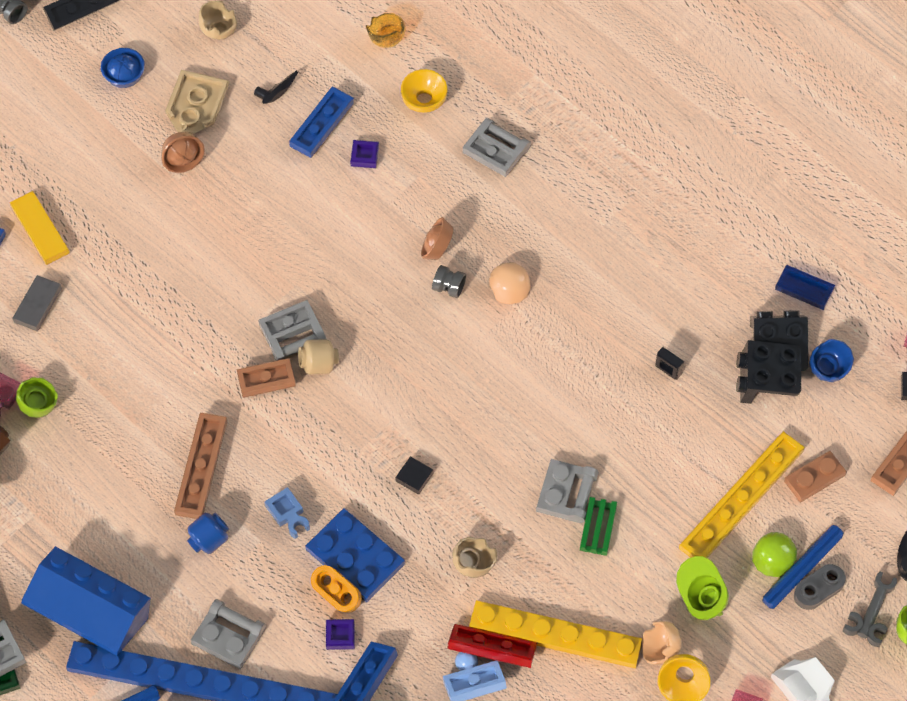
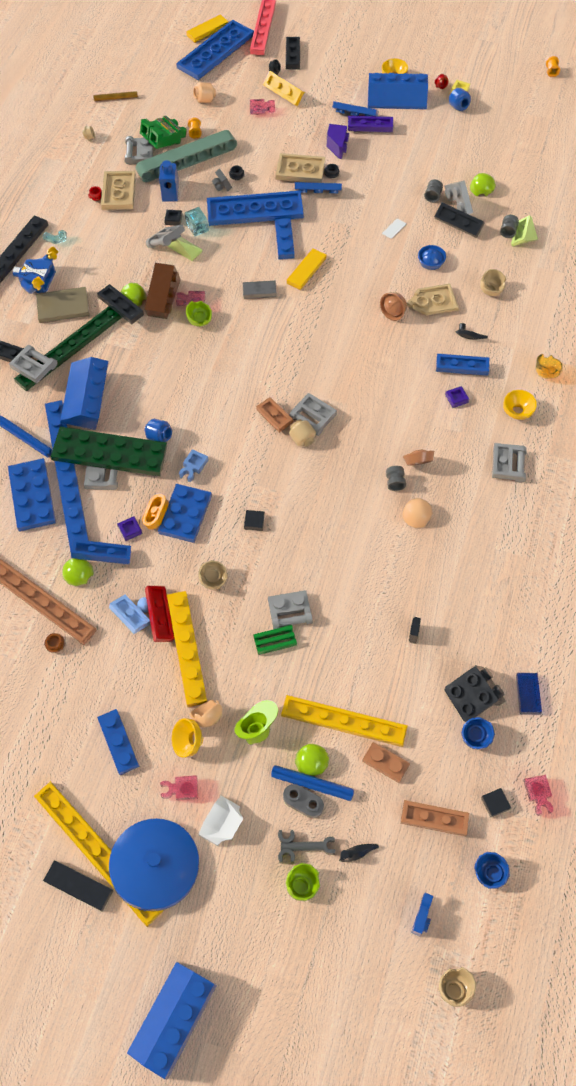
camera: 65 degrees right, 0 degrees up
(36, 87) = (394, 228): none -> white sticker
(200, 465) = (200, 409): nougat plate -> none
(205, 609) = (109, 451): none -> dark green plate
(768, 369) = (445, 694): black bracket -> none

